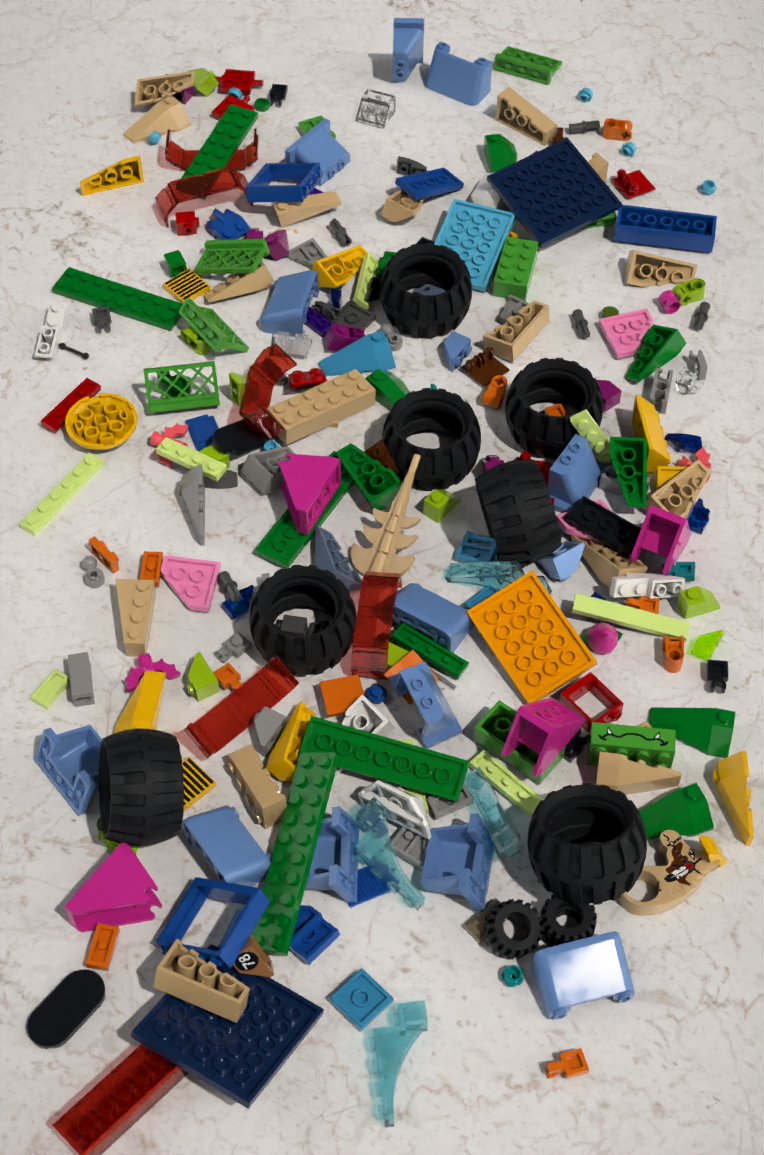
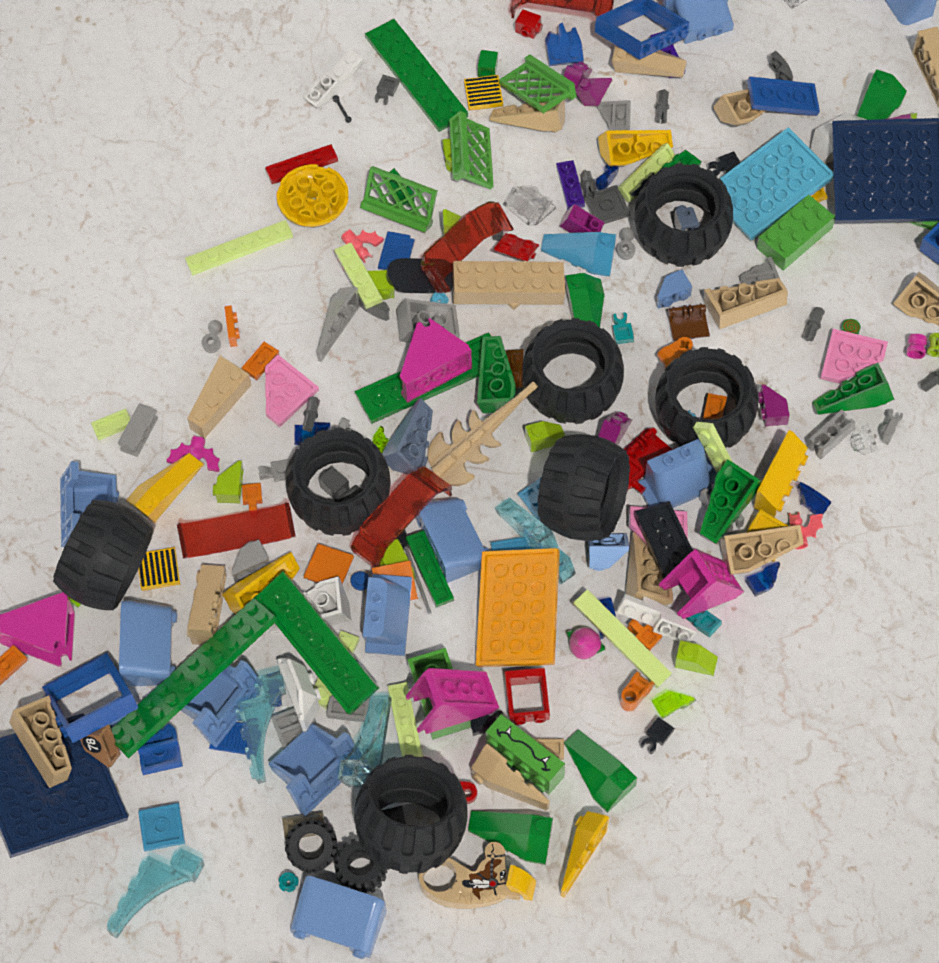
camera: 35 degrees right, 10 degrees up
(290, 302) = (558, 160): medium blue windscreen -> none

